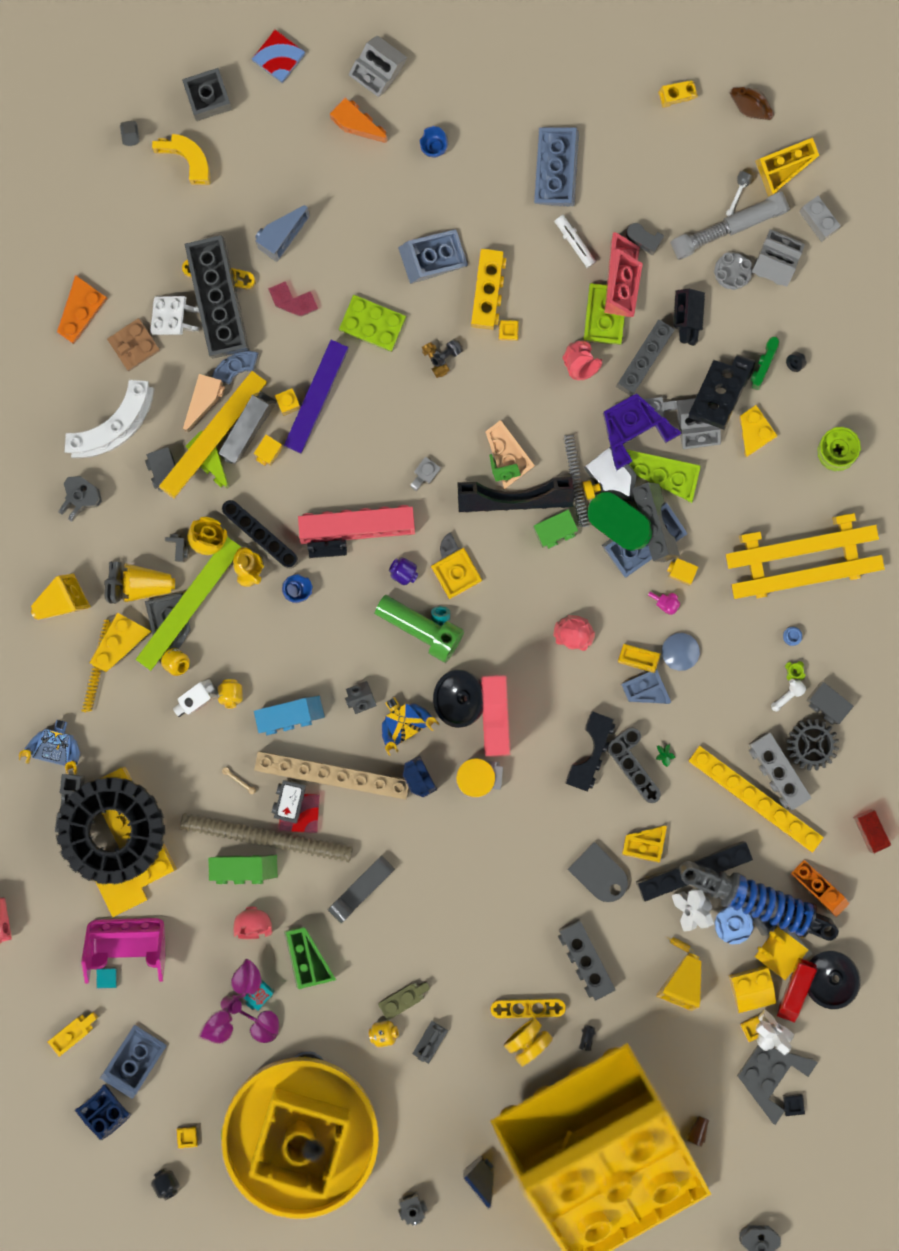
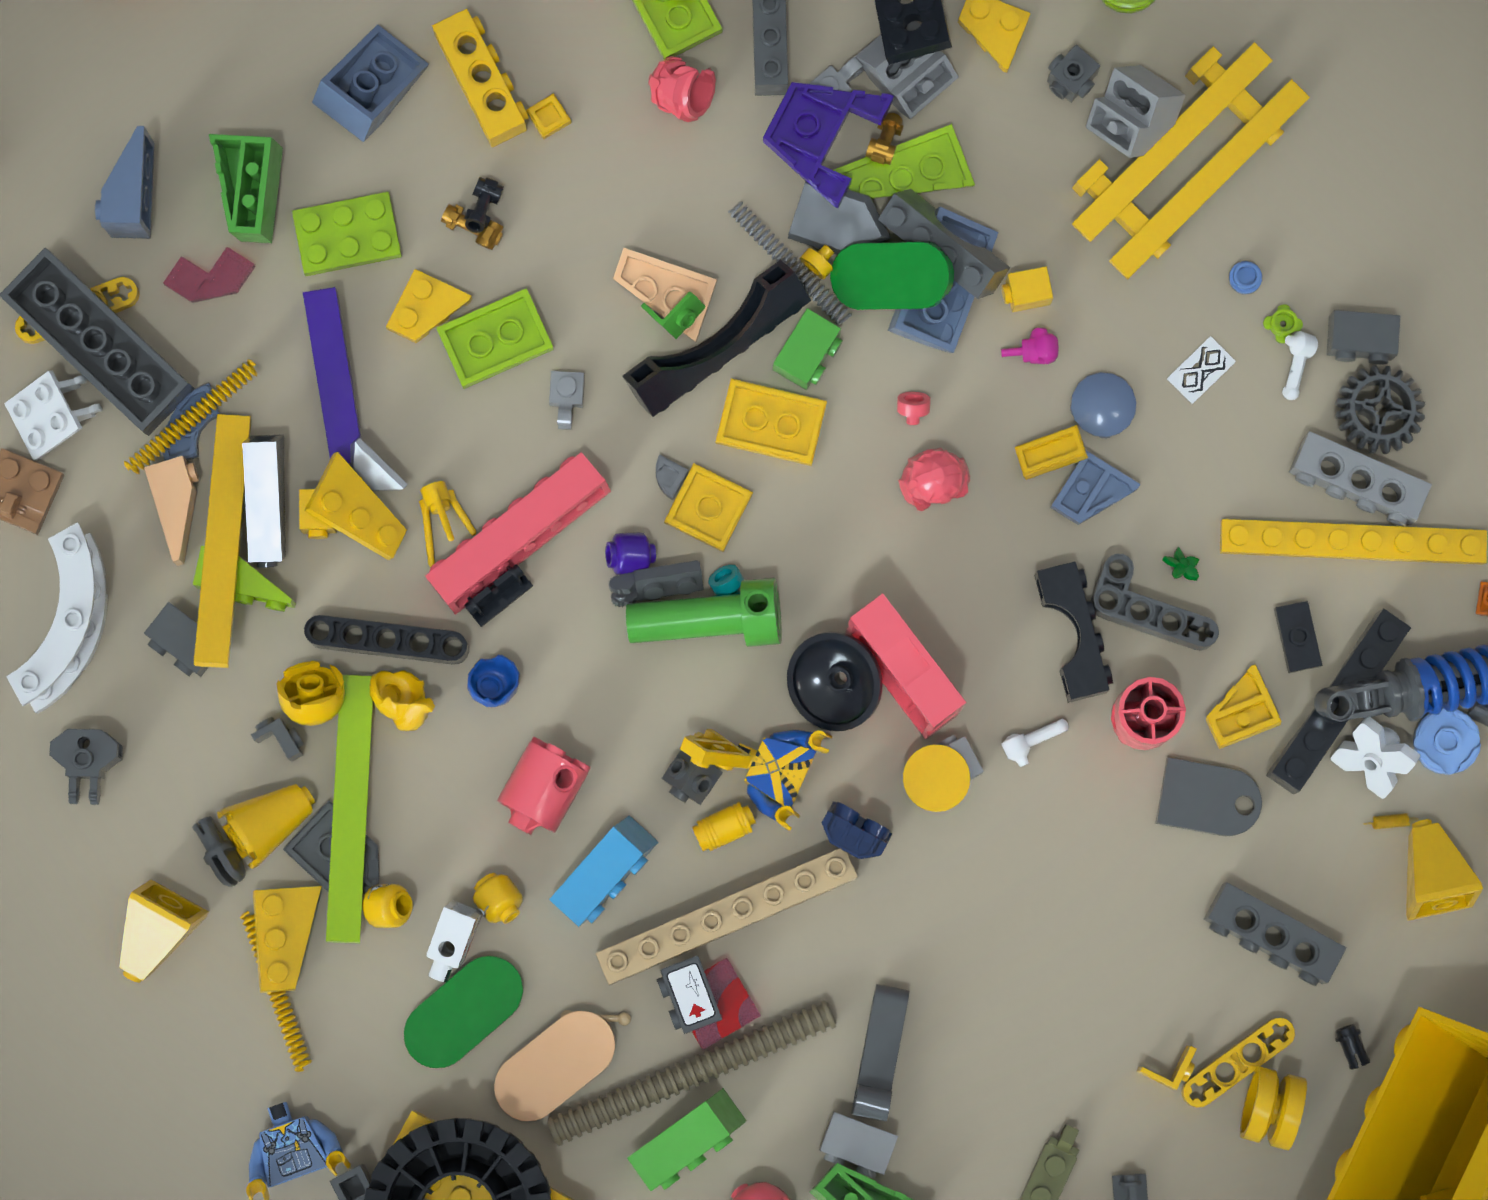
camera: 35 degrees left, 5 degrees down
(178, 736) = (463, 1012): none -> green tile
(204, 790) = (554, 1065): none -> light nougat tile
(245, 364) = (191, 416): none -> yellow piece
(285, 461) = (354, 509): none -> yellow wing
(286, 655) = (542, 787): none -> coral cylinder
(287, 402) = (300, 424): yellow brick -> none
(305, 448) = (373, 468): none -> light grey slope
(321, 924) = (858, 1144): none -> light grey brick
(329, 482) = (437, 499): none -> yellow plant
(340, 268) = (249, 184): none -> bright green wedge
(359, 732) = (724, 826): none -> yellow head
(378, 693) = (714, 750): none -> yellow wing
(386, 384) = (424, 306): none -> yellow wing
(406, 593) = (656, 583): none -> dark grey hinge
(409, 422) = (495, 338): none -> lime plate
(499, 994) = (1182, 1071): none -> yellow bracket
(514, 552) = (771, 422): none -> yellow tile
(526, 788) = (1018, 745): none -> white piece
(588, 591) = (913, 406): none -> coral tile
(606, 819) = (1163, 718): none -> coral cylinder
(657, 456) = (881, 149): none -> pearl gold bar
(697, 826) = (1298, 637): none -> black plate
(740, 666) = (1201, 370): none -> white sticker
(782, 477) = (1072, 74): none -> dark grey brick
(794, 519) = (1135, 110): none -> light grey piece

